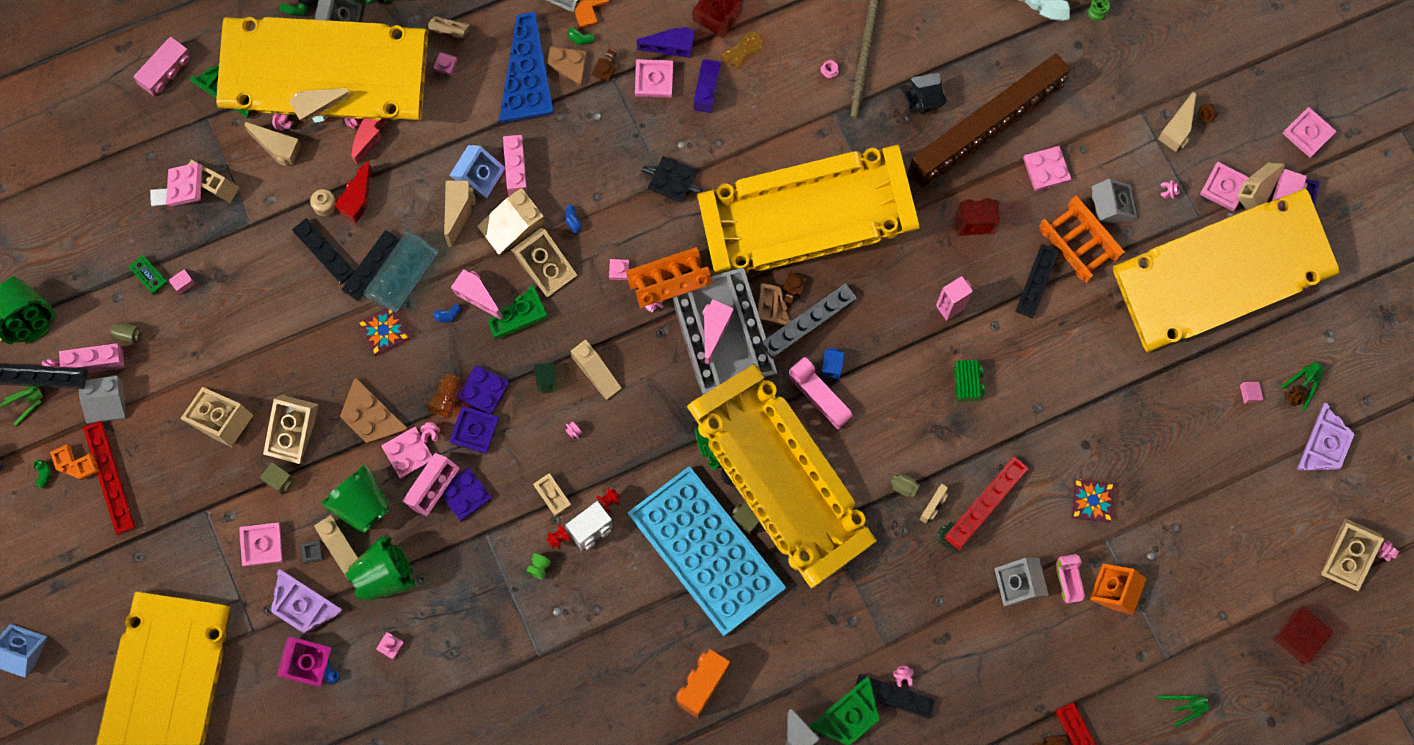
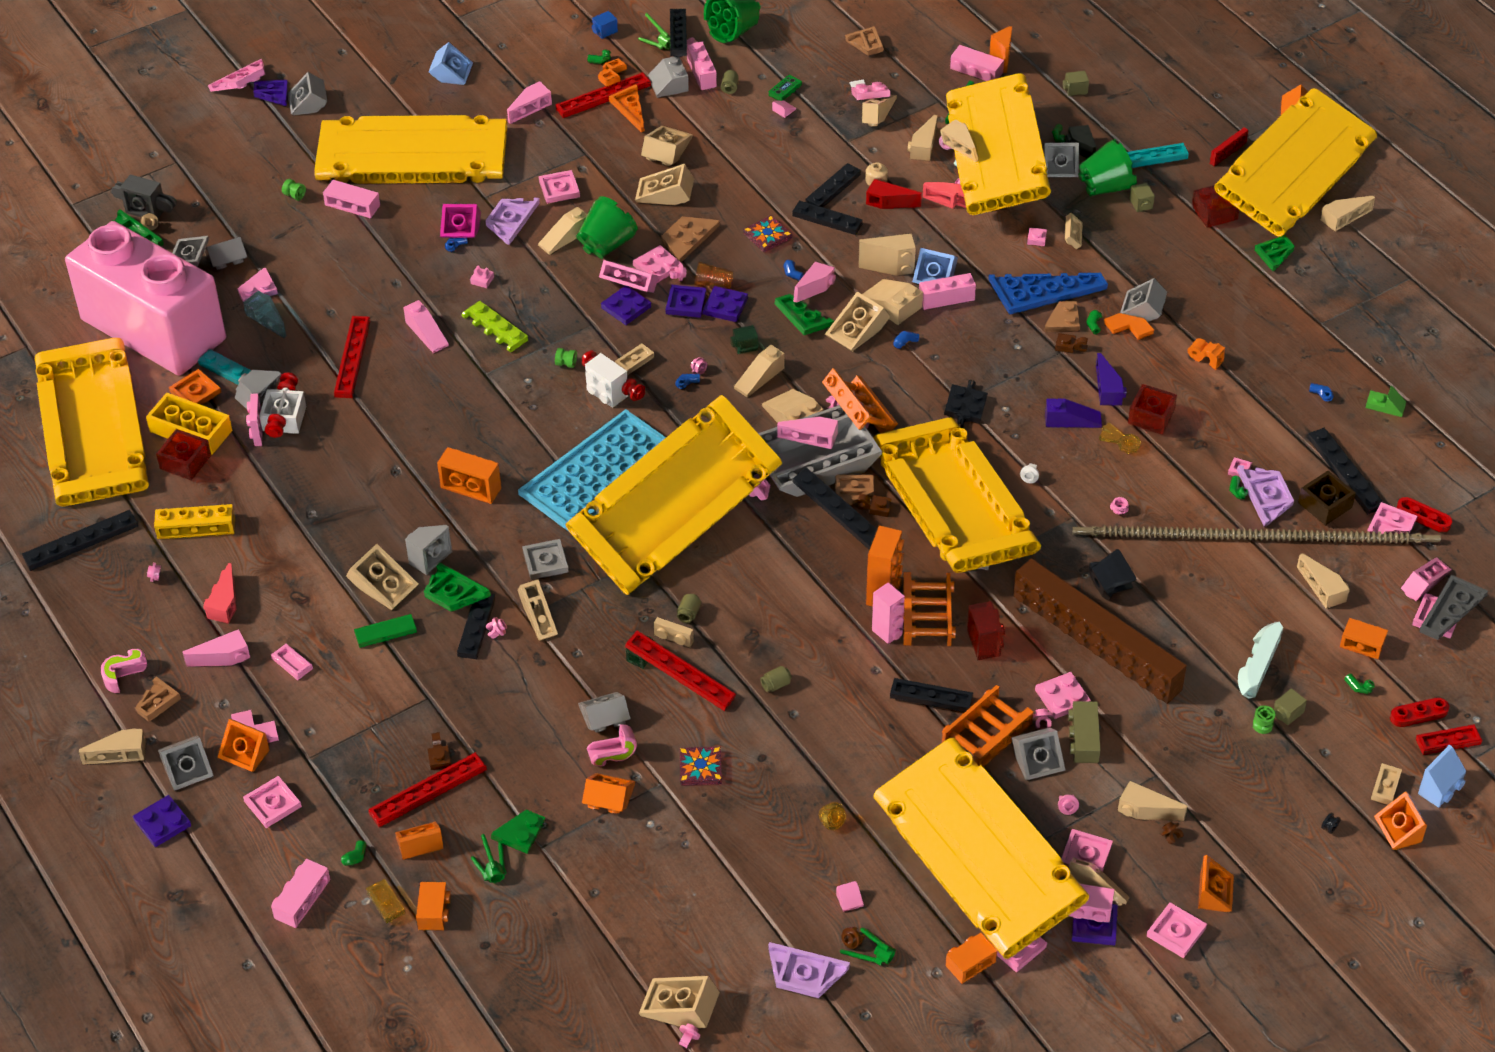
camera: 85 degrees right, 25 degrees down
(90, 174) = (866, 41): none -> medium nougat wing
(102, 557) = (529, 101): none -> bright pink slope
(135, 451) = (629, 105): none -> orange wing
(152, 32) = (1001, 45): none -> orange slope
(277, 478) = (618, 186): olive brick -> none
(312, 551) = (555, 217): dark grey tile -> none
(381, 571) = (546, 254): green cone -> none
(400, 272) = (823, 227): clear light blue slope -> none
(462, 714) = (424, 326): none -> bright pink slope
(469, 637) = (496, 324): none -> lime hinge
(588, 445) = (685, 379): none -> blue arm
(618, 269) = (867, 375): bright pink plate -> none
(653, 78) = (1067, 376): bright pink plate -> none
(655, 345) = (791, 406): none -> tan slope
(777, 139) = (1029, 473): none -> white plate
(819, 394) = (772, 531): bright pink beam -> none
(820, 618) = (545, 559): none -> light grey plate
(832, 363) = (803, 539): blue brick -> none
(887, 632) = (537, 609): none -> tan slope
(906, 290) = (884, 561): none -> orange brick
(924, 279) = (911, 615): none -> orange fence
(967, 381) = (808, 647): green brick -> none
(1003, 416) = (776, 679): none -> olive brick
(1072, 190) = (1042, 714): none -> bright pink plate
(1095, 158) = (1084, 732): none -> olive brick
(1152, 675) = (520, 831): none -> green wing
(1166, 392) = (832, 815): none -> clear yellow cone
(1269, 93) = (1215, 886): none -> orange slope
(1303, 635) = (580, 958): clear red brick -> none
(1326, 302) = (971, 957): none -> orange brick

